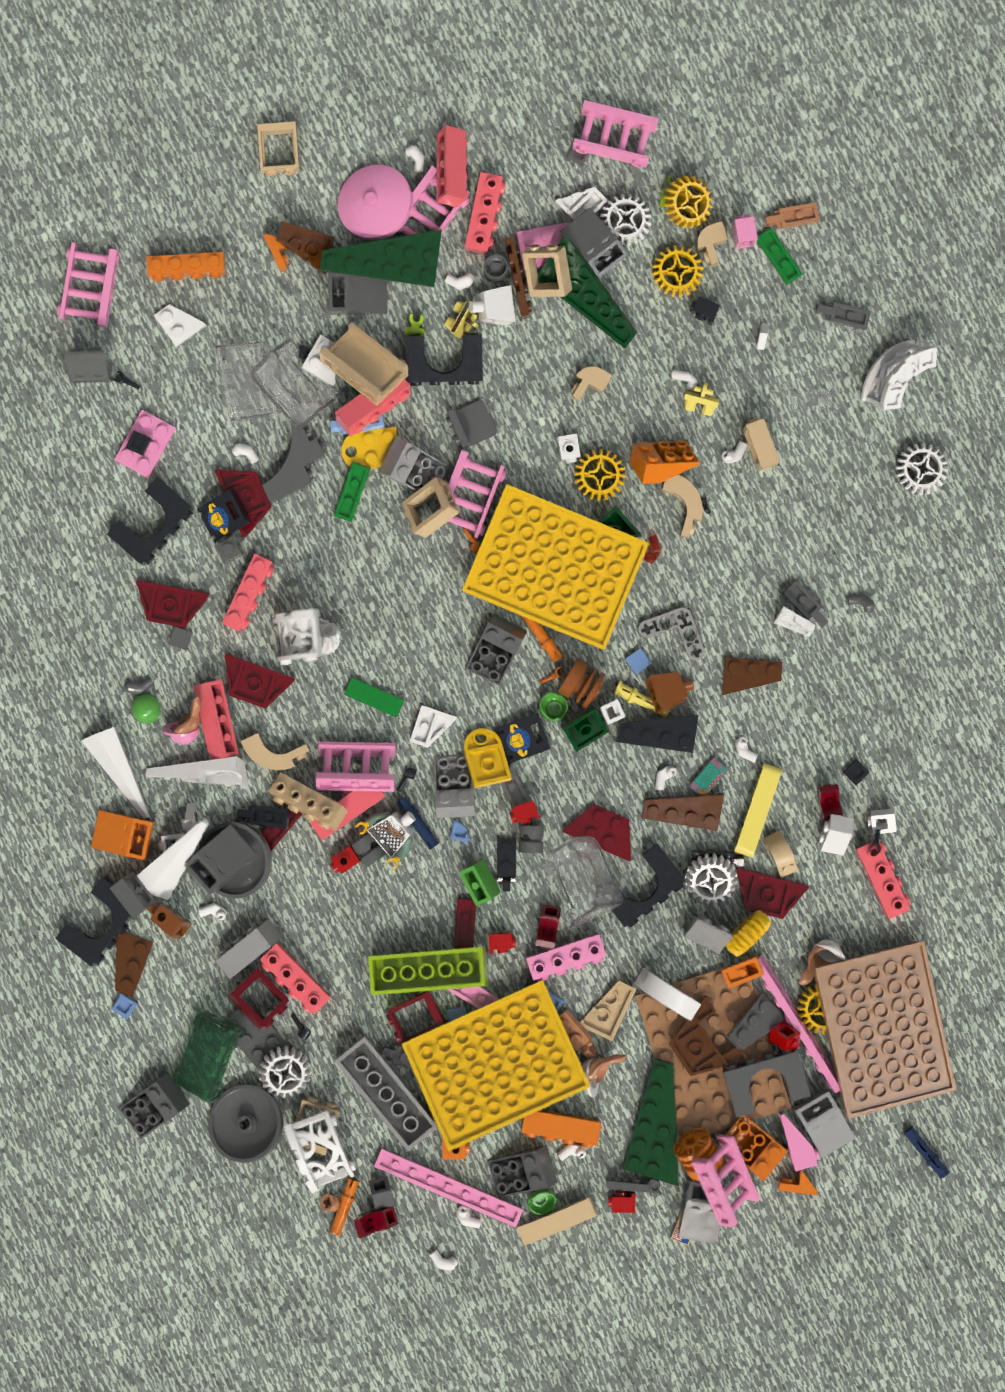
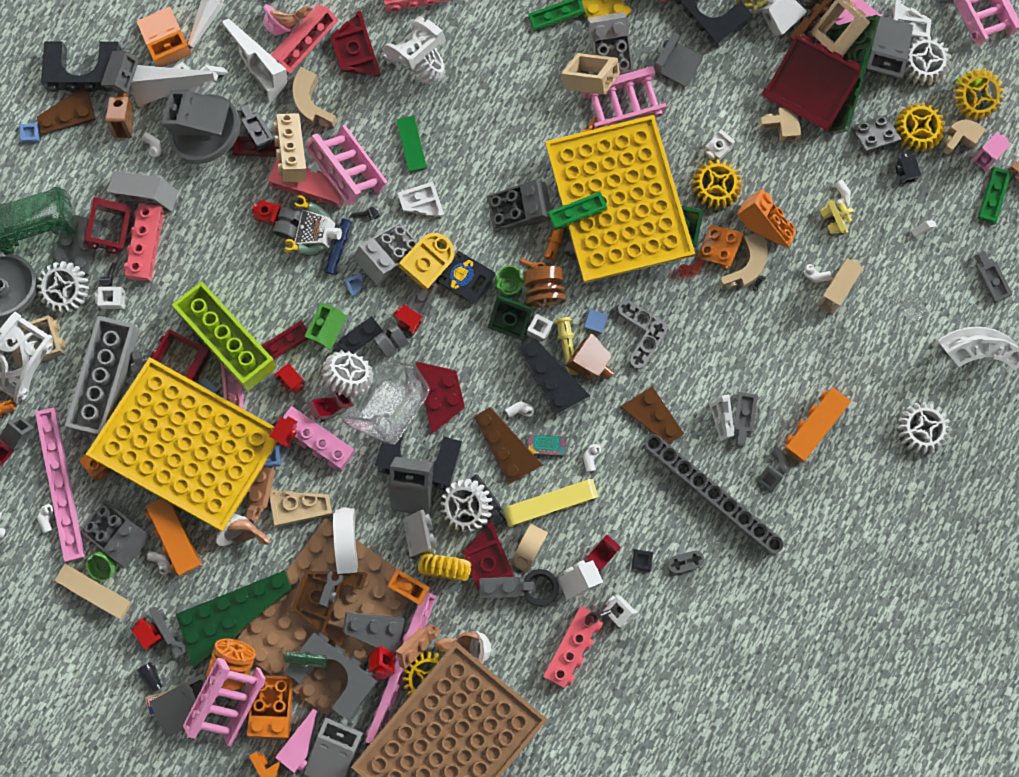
camera: 60 degrees right, 10 degrees down
(330, 1036) = (104, 293): none -> white brick
(534, 901) = (347, 374): none -> white gear
(542, 610) = (577, 211): none -> green tile
(545, 979) = (284, 430): none -> red brick
(576, 332) = (812, 82): none -> dark red panel
(652, 512) = (720, 246): none -> orange hinge
(655, 310) = (876, 134): none -> dark grey hinge
(657, 1223) = (149, 675): none -> black cone
(663, 910) = (410, 485): none -> dark grey slope
(704, 1040) = (328, 595): none -> dark grey plate
(741, 1094) = (305, 659): none -> clear green pin
(790, 998) = (416, 645): none -> nougat hinge
(798, 897) = (504, 587): none -> dark grey hinge
(818, 854) = (555, 587): none -> black tyre
(856, 552) = (817, 424): none -> orange brick
(857, 678) = (723, 497): none -> dark grey beam
(868, 621) = (770, 478): none -> dark grey tile
(879, 737) = (687, 566): none -> dark grey beam

